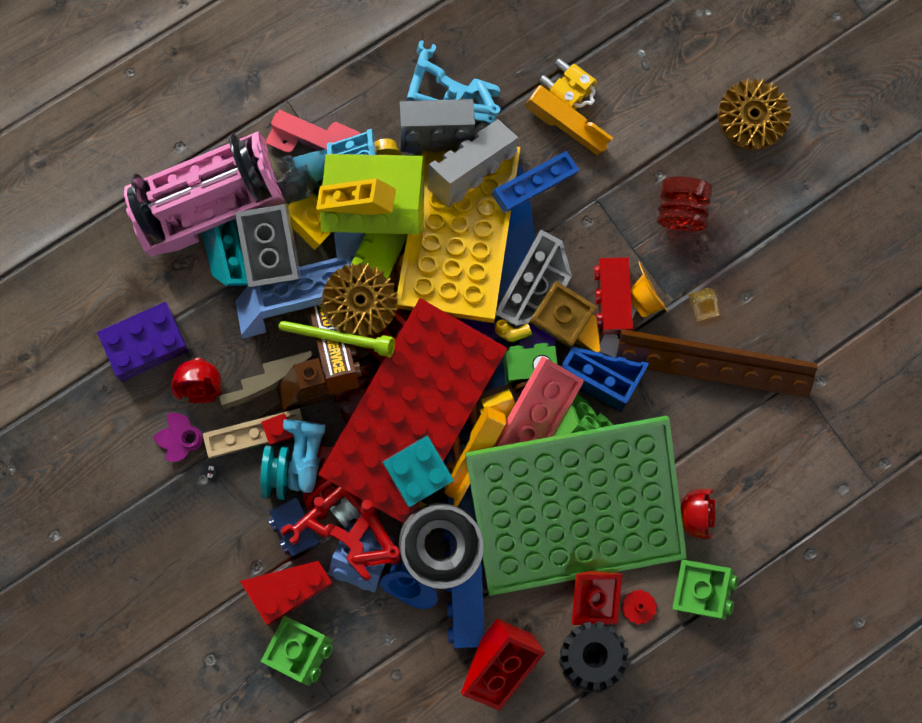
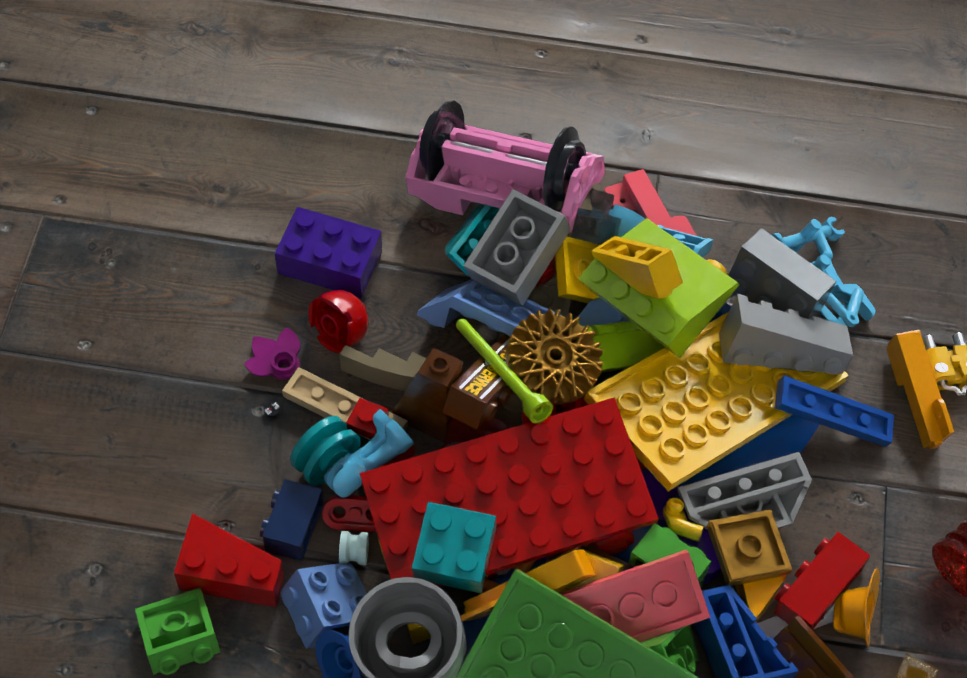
camera: 45 degrees right, 20 degrees down
(367, 520) = (321, 585): red piece -> none

